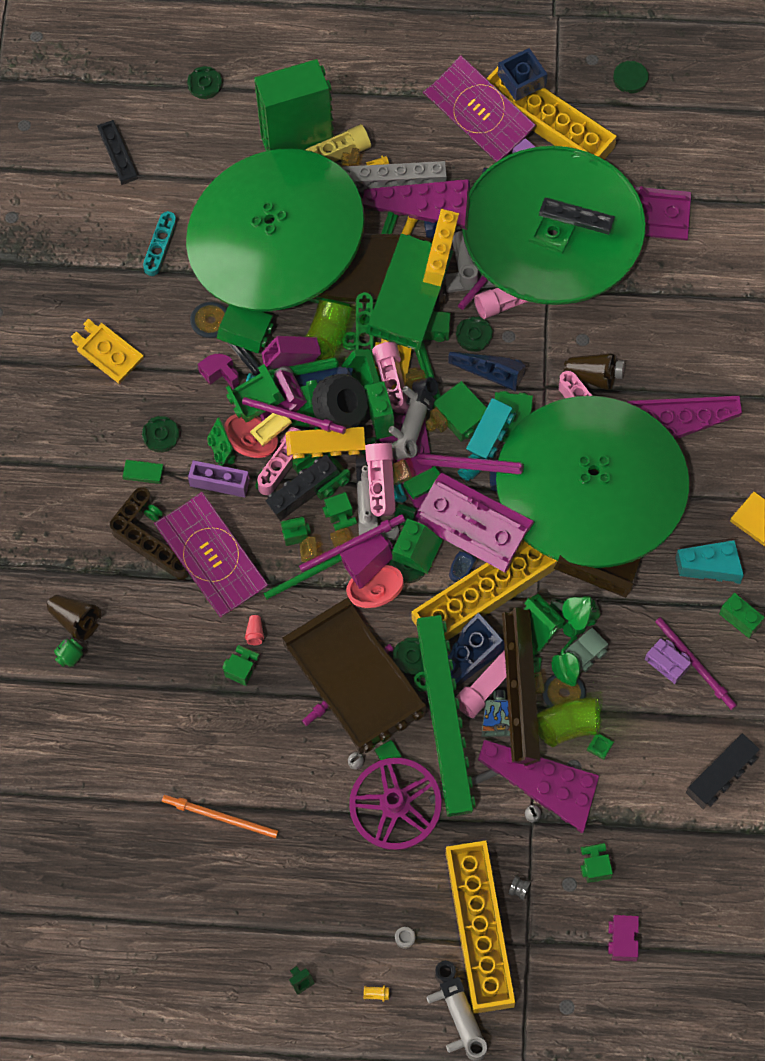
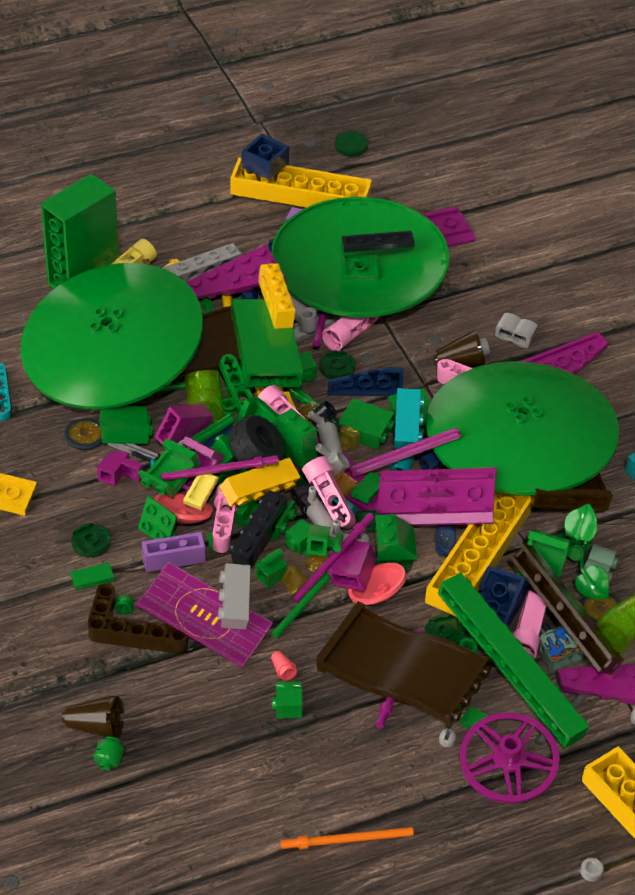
camera: 30 degrees left, 20 degrees down
(241, 549) = (234, 596): none -> light grey brick
(346, 522) = (320, 539): none -> green brick
(479, 109) = (239, 197): magenta hinge -> none
(662, 362) = (516, 330): none -> light grey brick

